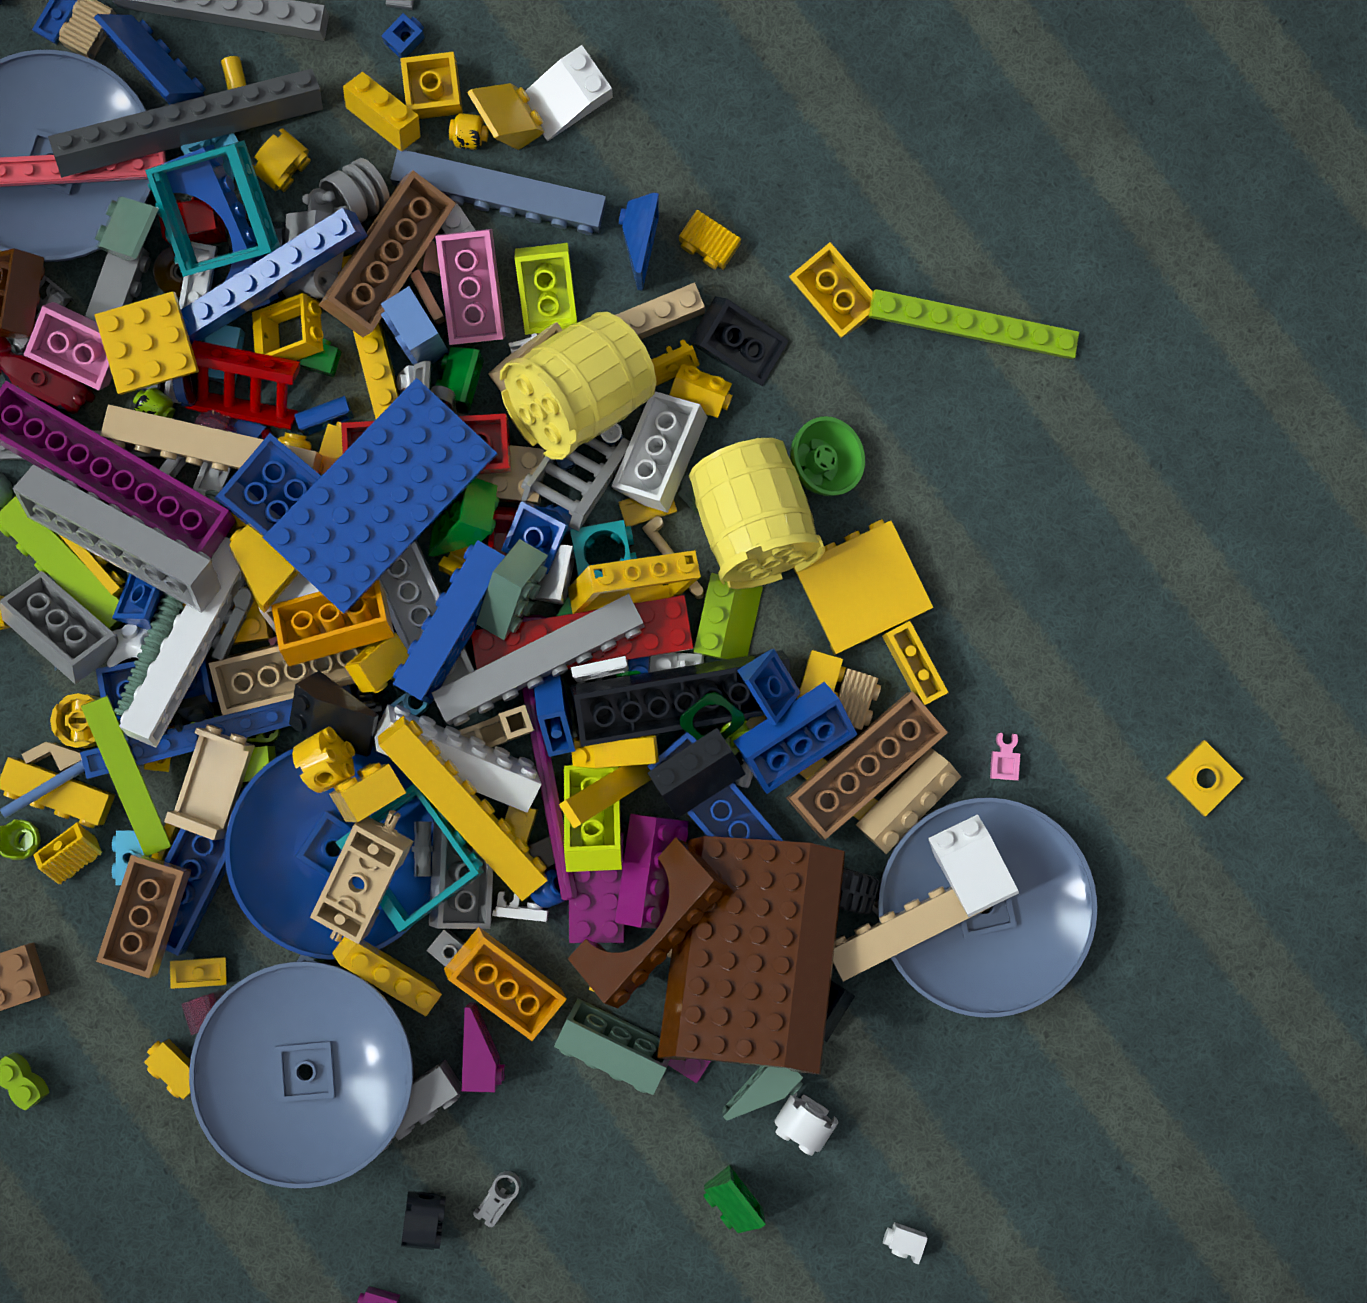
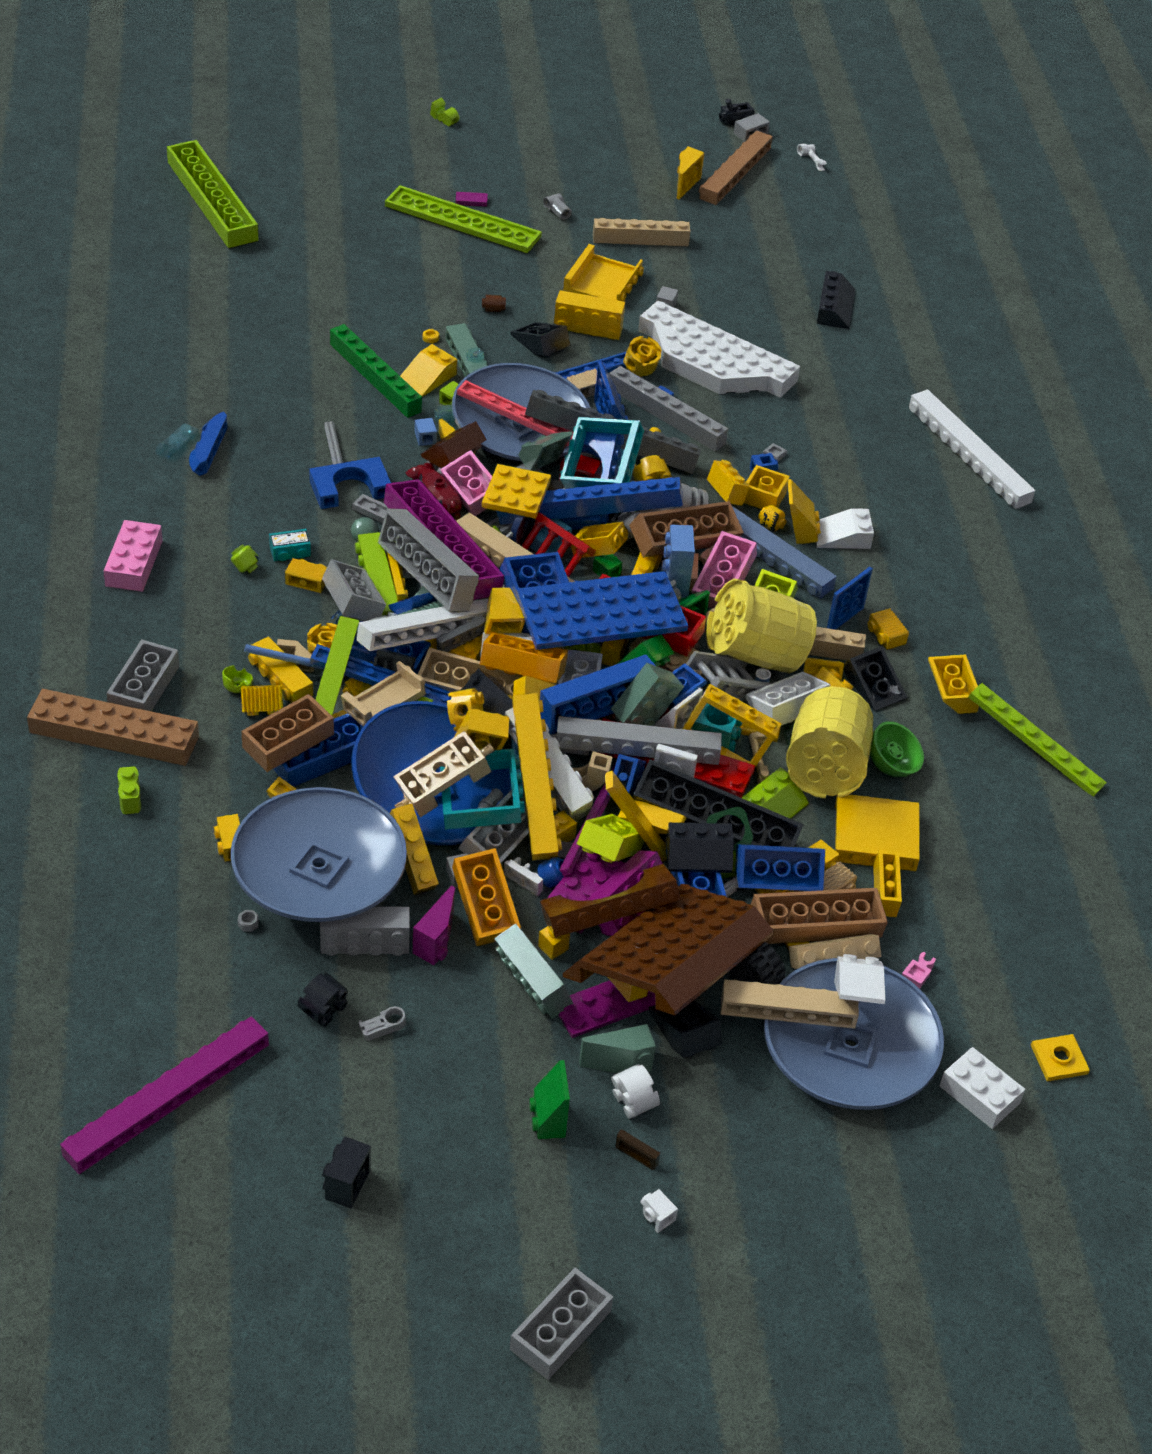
camera: 25 degrees right, 40 degrees down
(770, 685) = (781, 825): blue slope -> none
(845, 1185) = (637, 1150): none -> dark brown tile
(1147, 880) = (982, 1087): none -> white brick

